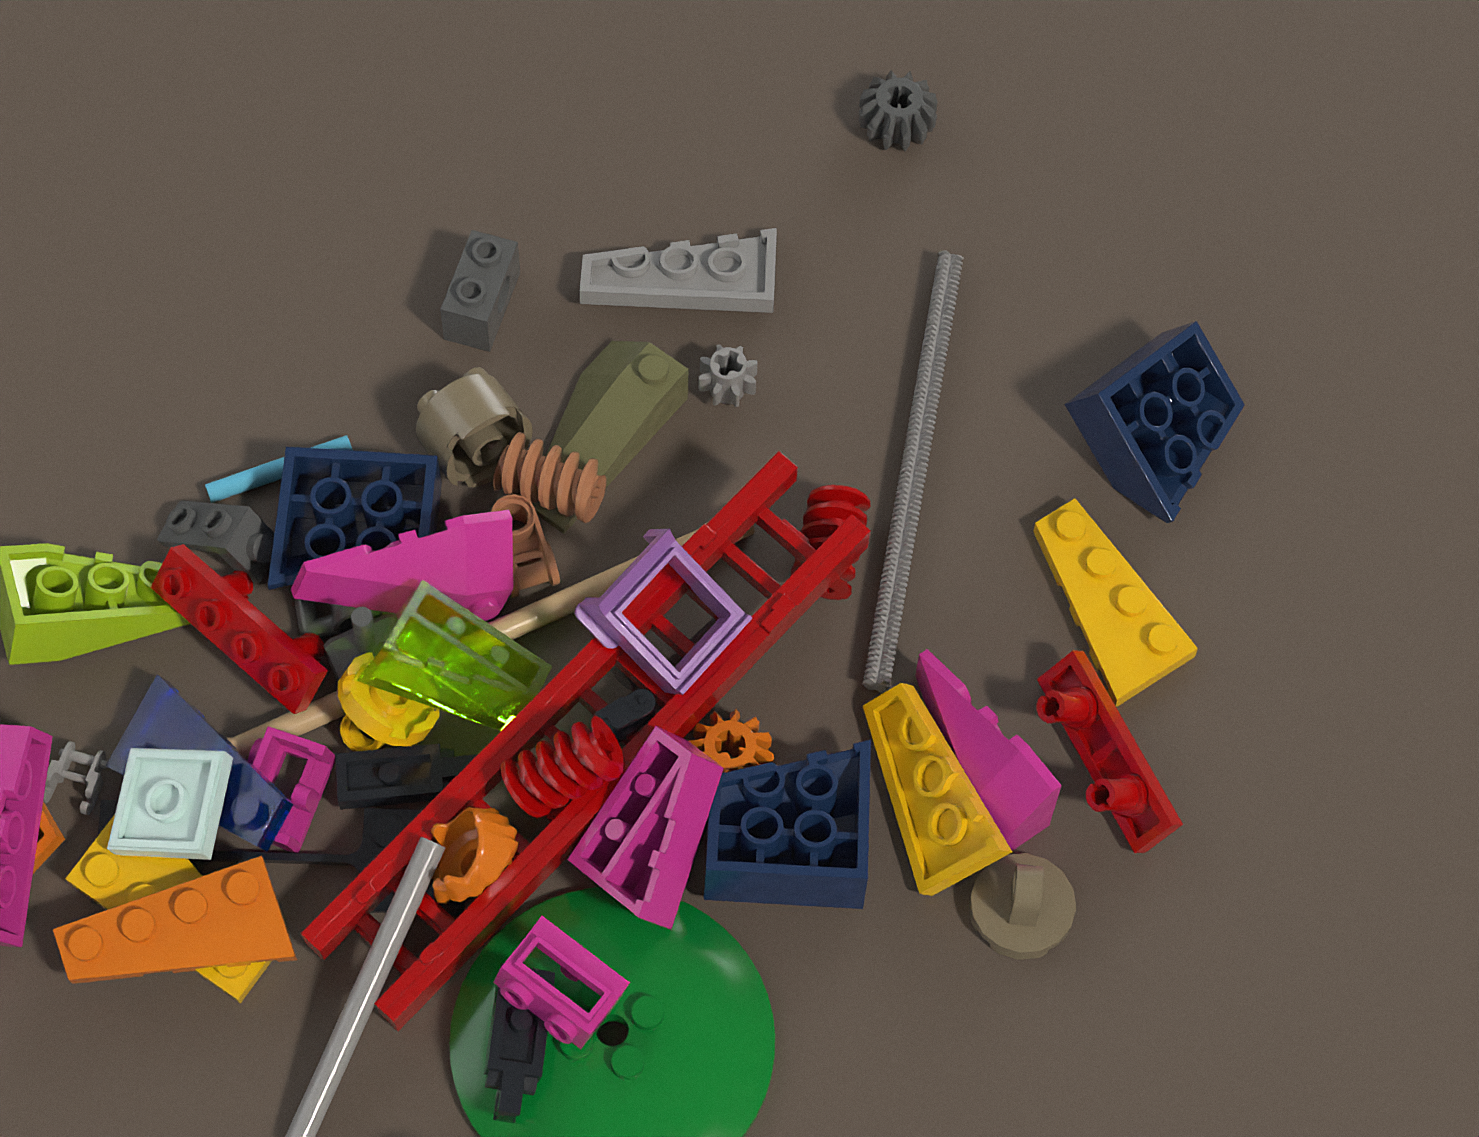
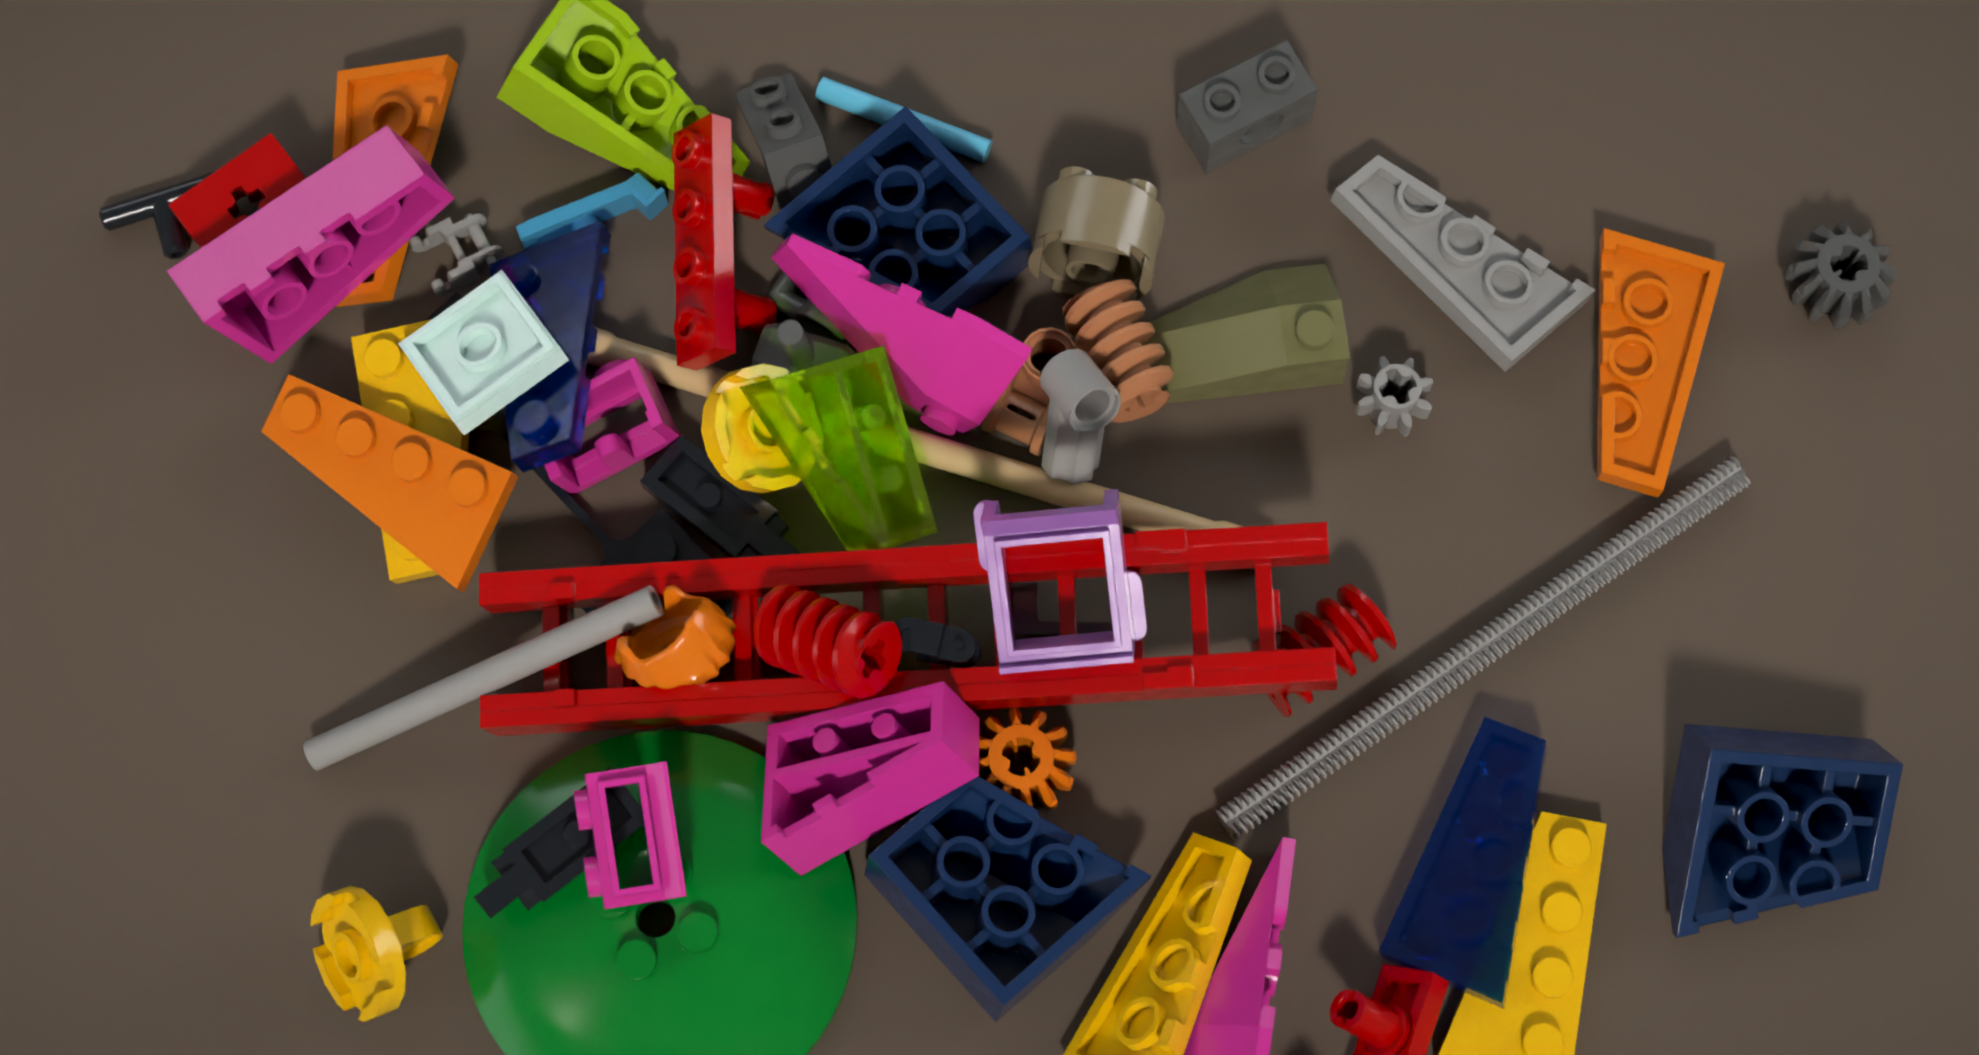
camera: 50 degrees right, 10 degrees up
(158, 646) = (603, 205): none -> dark azure piece
(566, 521) = (1077, 413): none -> light grey piece
(837, 234) = (1649, 347): none -> orange wing
(1032, 581) = (1473, 872): none -> clear blue wing

